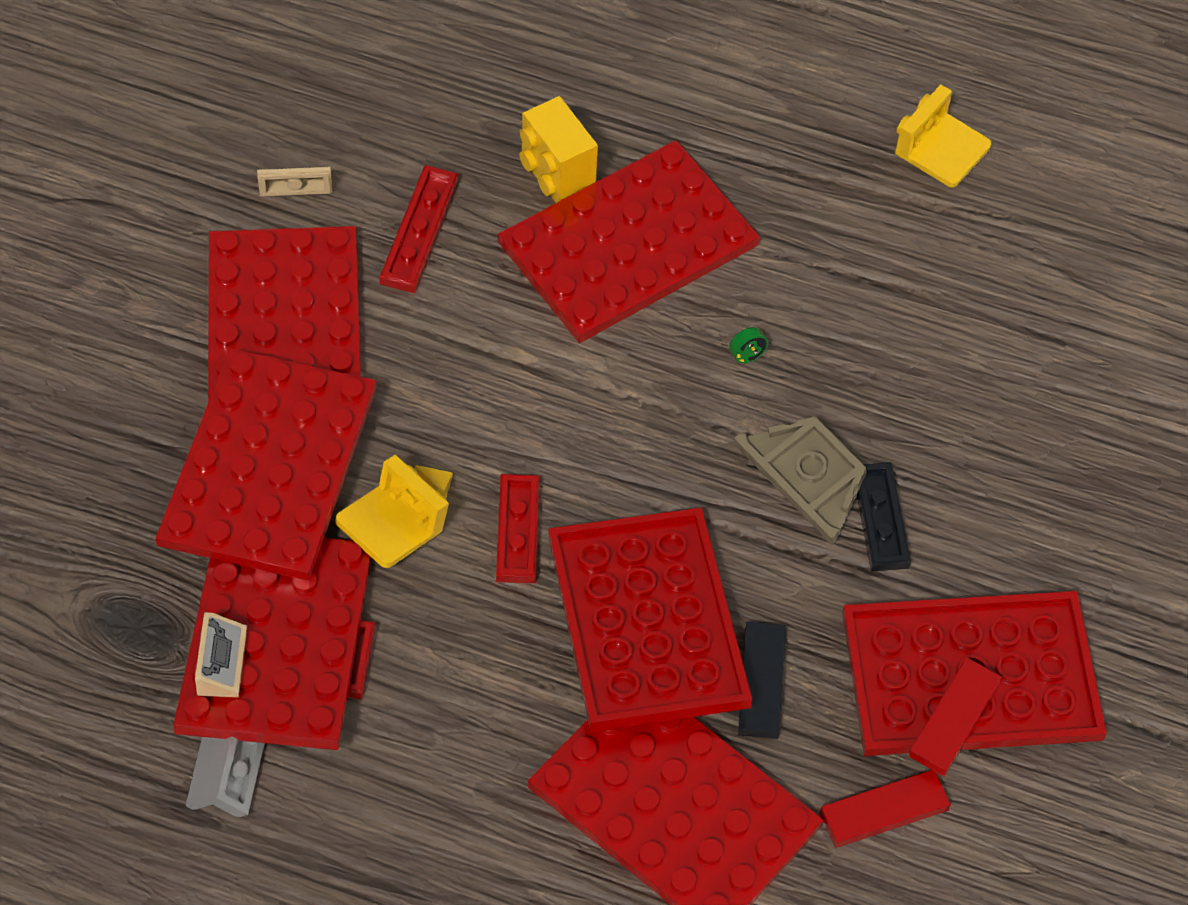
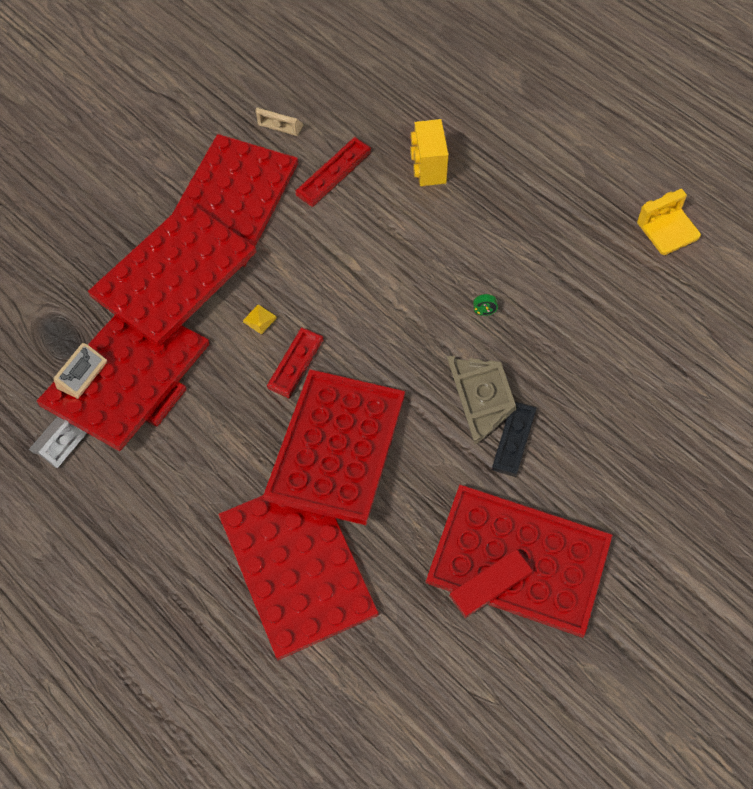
camera: 30 degrees right, 5 degrees up
(395, 515) = (226, 329): yellow bracket -> none
(627, 240) = (449, 219): red plate -> none
(764, 672) = (388, 510): black tile -> none
(884, 808) = (421, 622): red tile -> none

